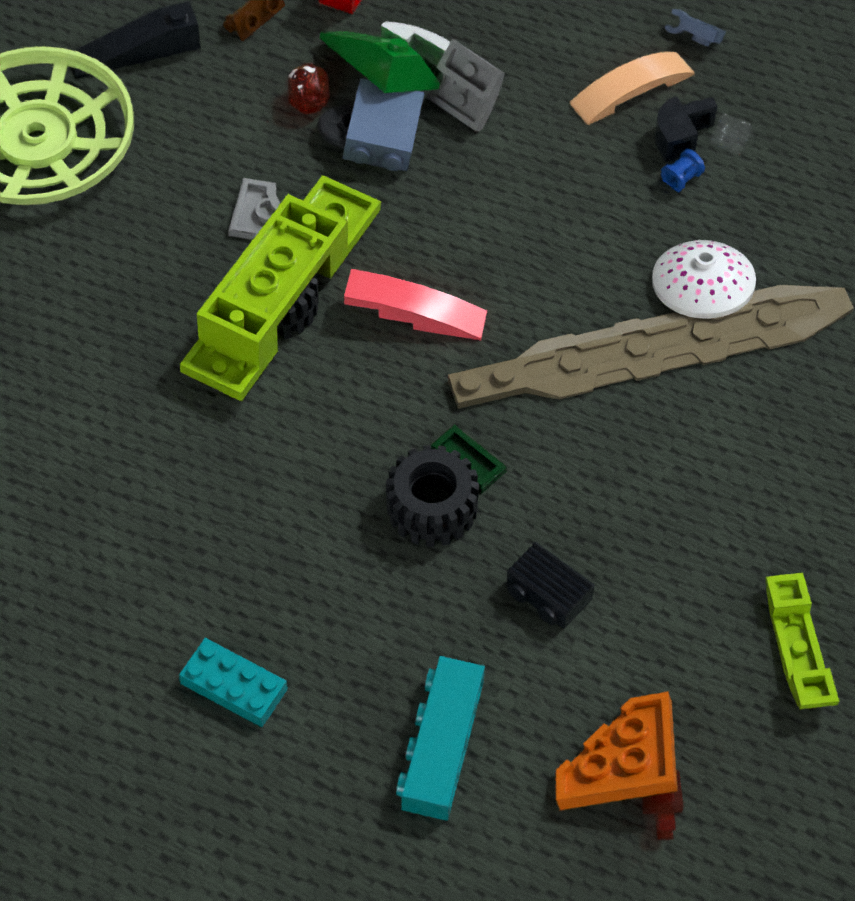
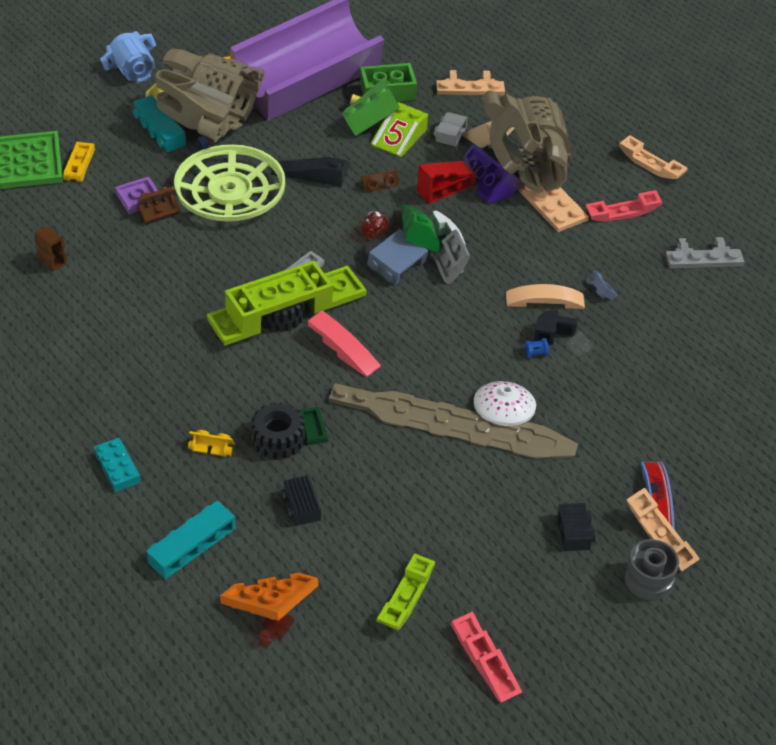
camera: 30 degrees right, 10 degrees down
(332, 572) = (203, 440): none -> yellow hinge

